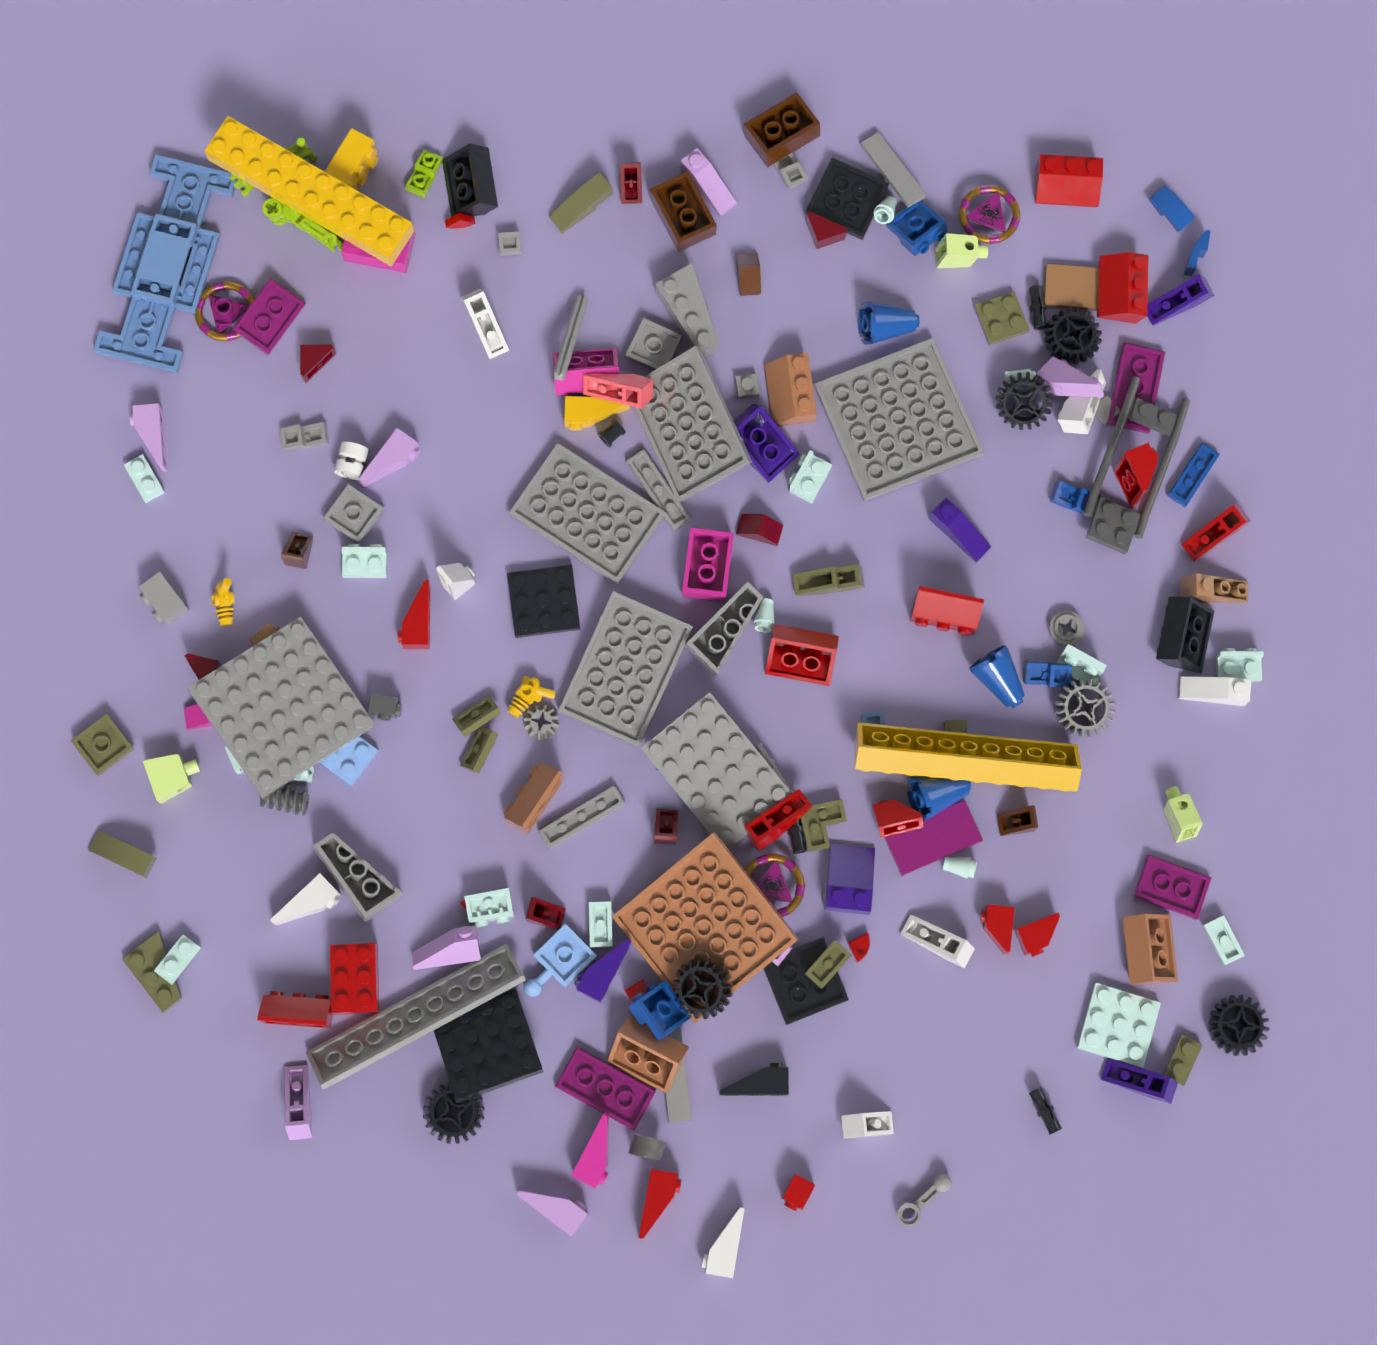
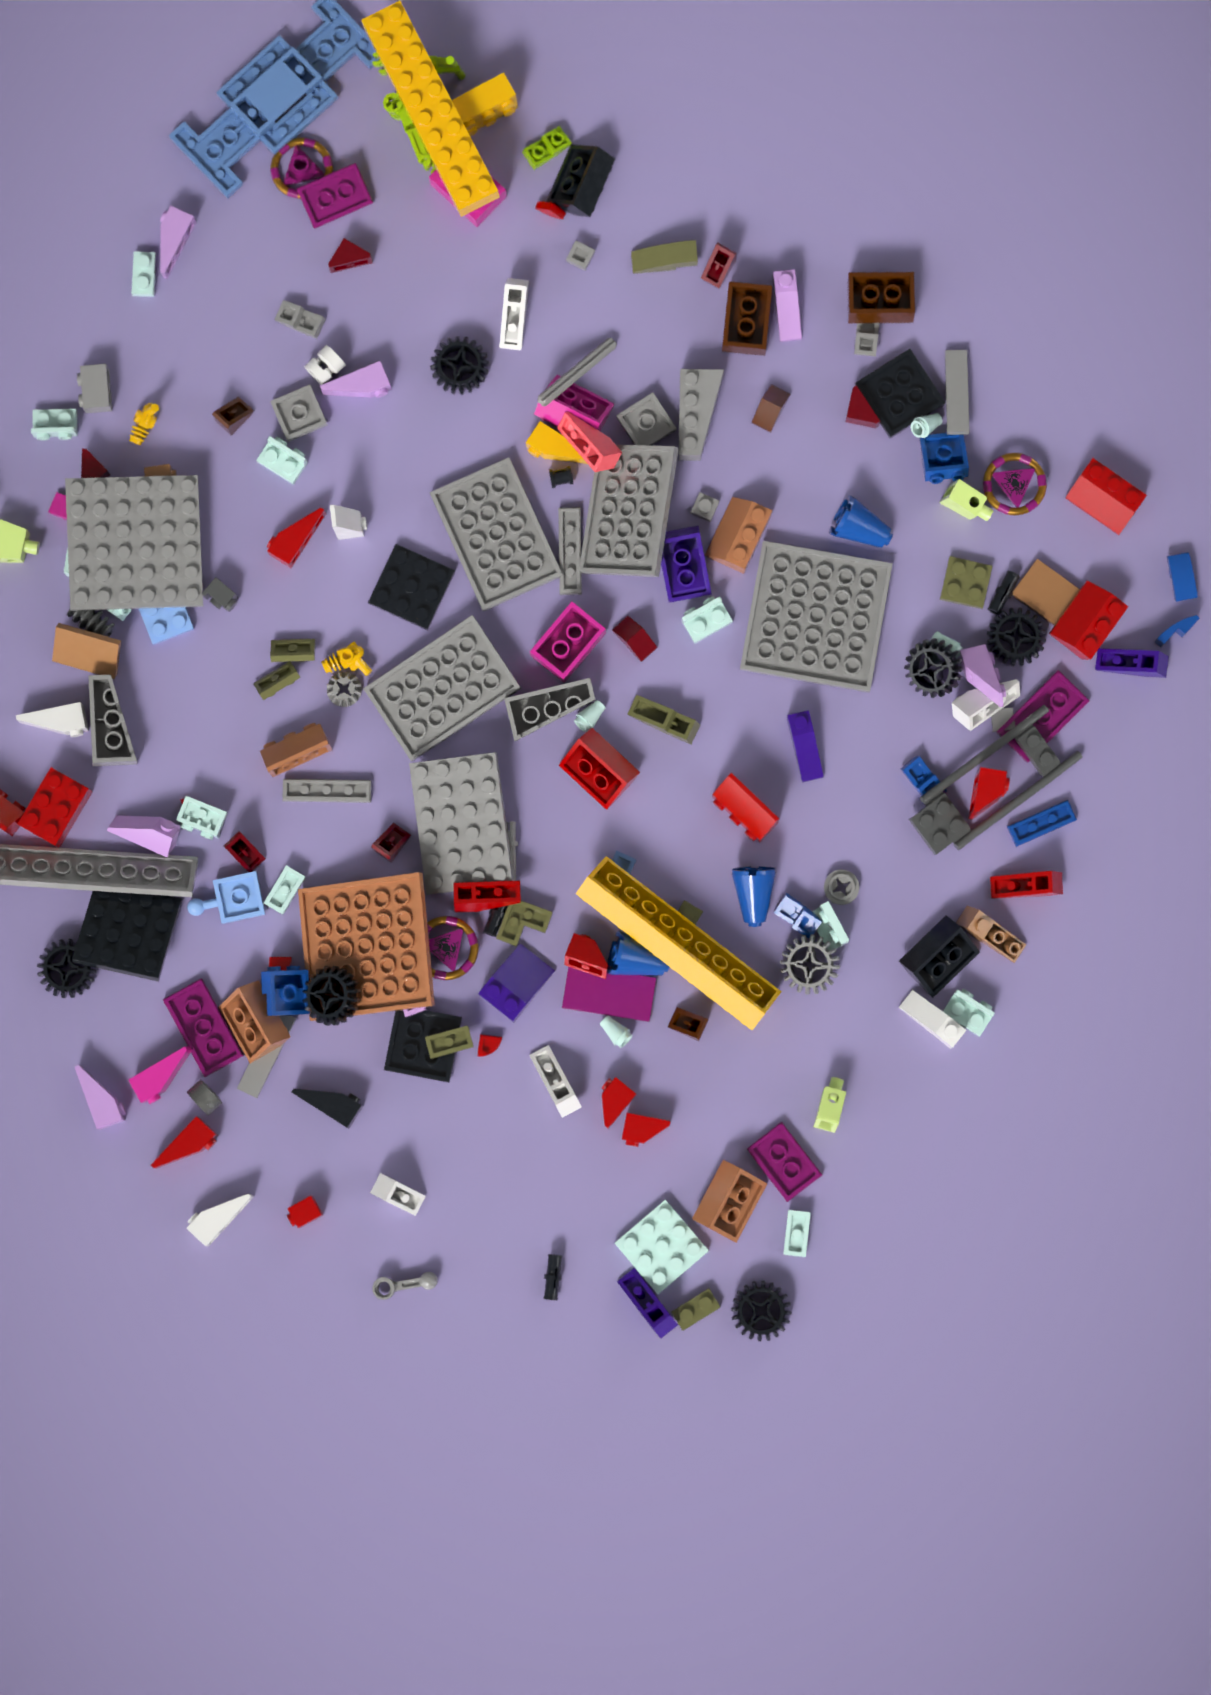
camera: 45 degrees right, 5 degrees up
(145, 650) = (54, 423): none -> light aqua bracket
(296, 825) = (86, 650): none -> medium nougat tile
(473, 389) = (467, 367): none -> black gear
(600, 975) = (256, 932): dark purple slope -> none

